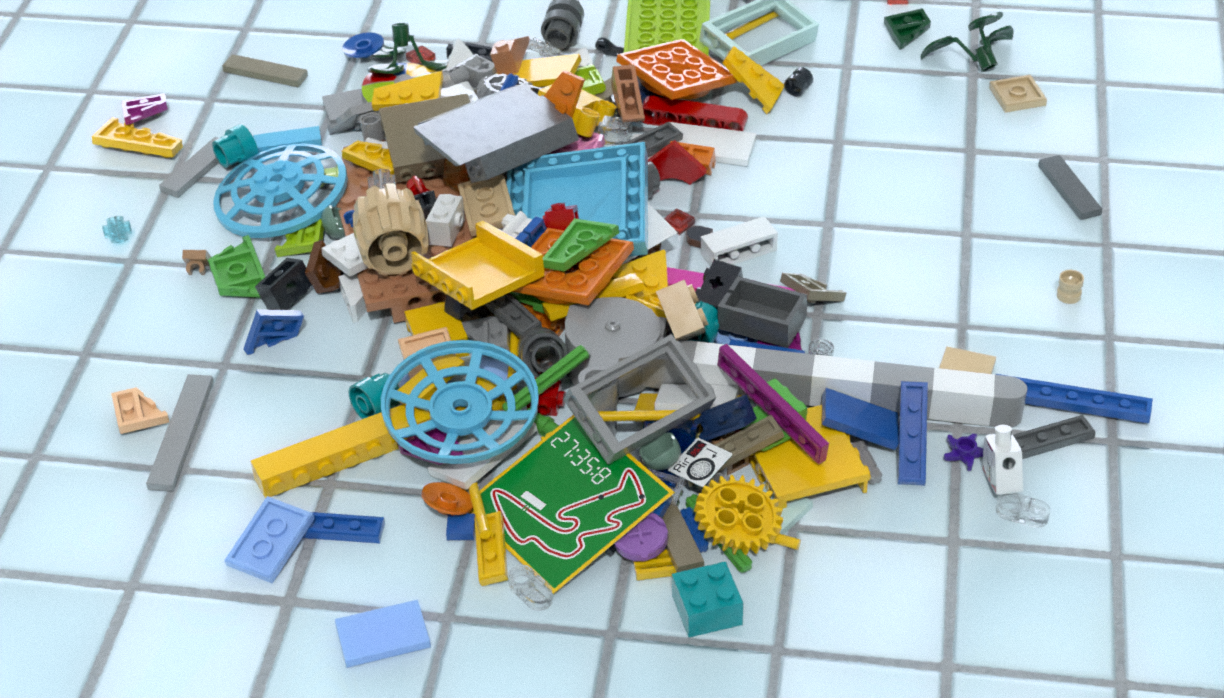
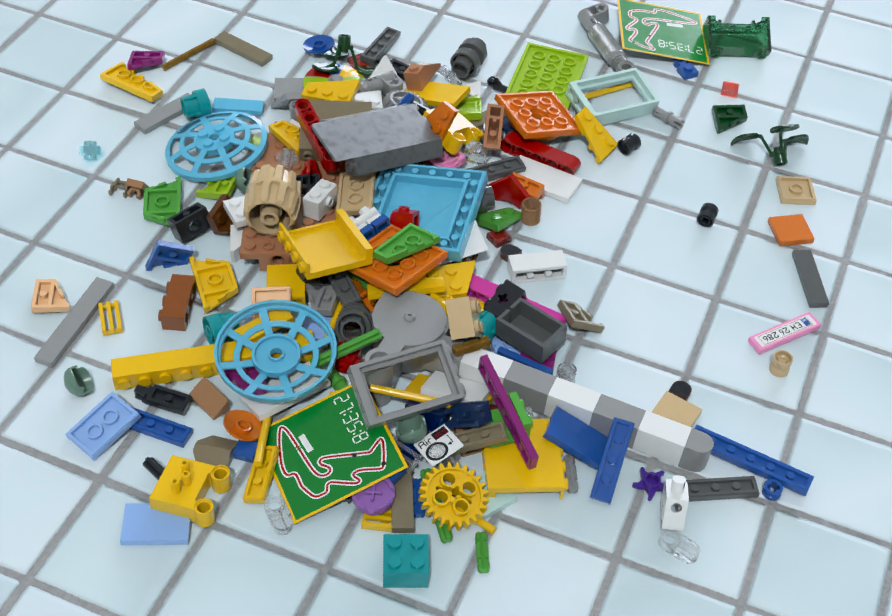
camera: 10 degrees right, 5 degrees up
(165, 264) = (114, 185): none -> dark tan piece
(192, 94) = (189, 53): none -> pearl gold bar
(216, 496) = (78, 381): none -> sand green hair
(218, 405) = (108, 307): none -> yellow tile
(305, 380) = (177, 302): none -> dark orange brick
(333, 492) = (164, 398): none -> black hinge
(341, 347) = (214, 281): none -> yellow wing
(391, 479) = (210, 399): none -> medium nougat slope
(402, 136) = (306, 117): none -> red beam
(402, 582) = (184, 486): none -> yellow piece
(423, 541) = (214, 450): none -> dark tan slope
(442, 31) = (380, 45): none -> dark grey tile
(673, 199) = (498, 219): none -> bright green wing
(702, 340) = (471, 346): none -> pearl gold axle
(708, 182) = (531, 211): none -> medium nougat piece
(794, 570) = (482, 552): none -> bright green axle
(834, 42) = (668, 117): none -> light grey pin
(923, 142) = (707, 214): none -> black wheel
(963, 340) = (681, 389): none -> black tile
(1028, 138) = (790, 230): none -> orange tile
(1061, 253) = (784, 333): none -> tile
(1112, 420) = (778, 488): none -> blue bush

